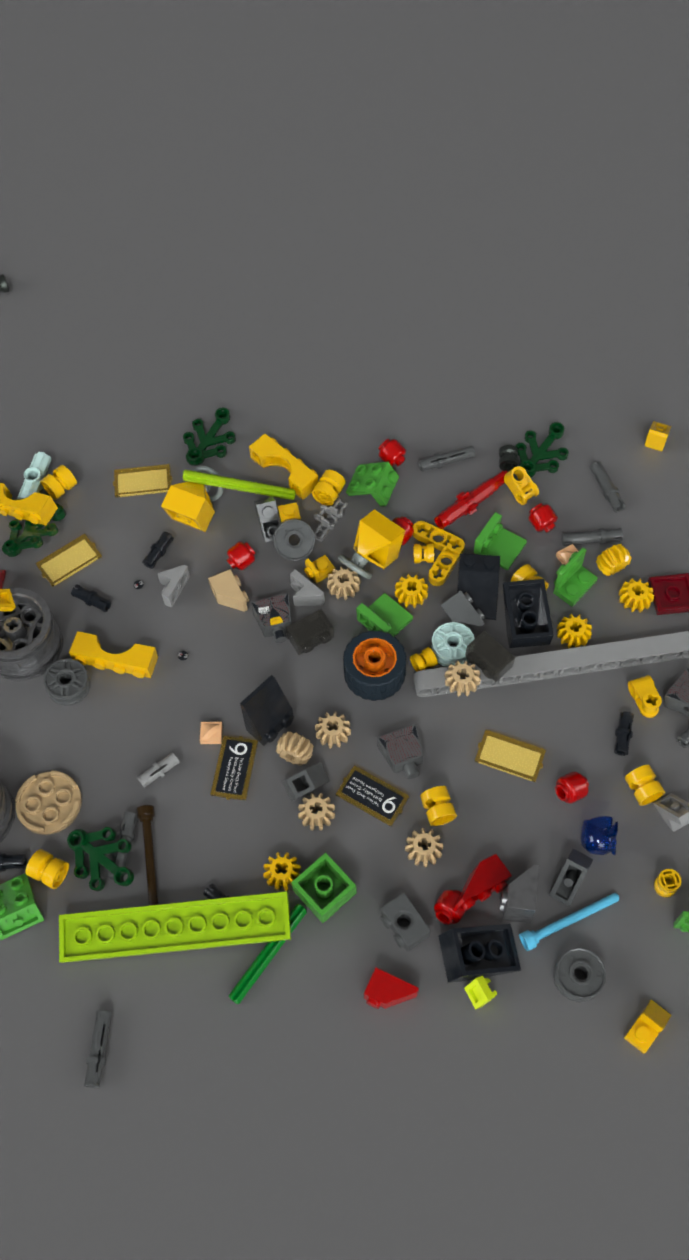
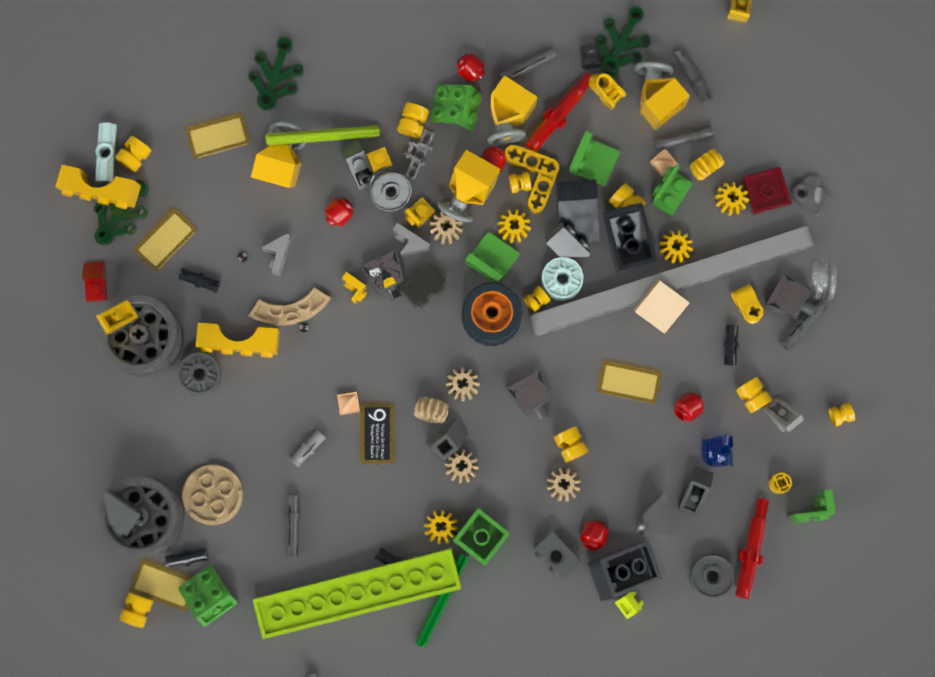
camera: 15 degrees left, 20 degrees up
(45, 868) = (230, 559): yellow wheel -> none
(97, 856) = (272, 540): dark green plant -> none
(146, 814) = (306, 494): dark brown piece -> none
(158, 550) = (253, 216): black pin -> none
(174, 642) = (290, 314): none -> tan tile
(227, 590) = (333, 253): tan slope -> none
(242, 623) = (352, 284): none -> yellow bracket
(266, 711) = (400, 381): black slope -> none
(269, 453) = (342, 85): yellow arch -> none
(372, 795) = (509, 440): piece -> none
(388, 990) = (550, 616): red slope -> none
(425, 488) = (510, 108): none -> yellow piece
(462, 685) = (582, 315): tan gear -> none
(486, 878) = (618, 508): red slope -> none
(489, 656) = (599, 292): clear smoke brick -> none
(531, 938) = (666, 551): medium azure piece -> none
(542, 518) = (633, 124): red head -> none
(553, 682) = (661, 306): none -> tile
(575, 493) = (659, 96): none -> yellow piece
(627, 957) = (750, 556): none -> red piece
(647, 1026) = (772, 609): yellow slope -> none

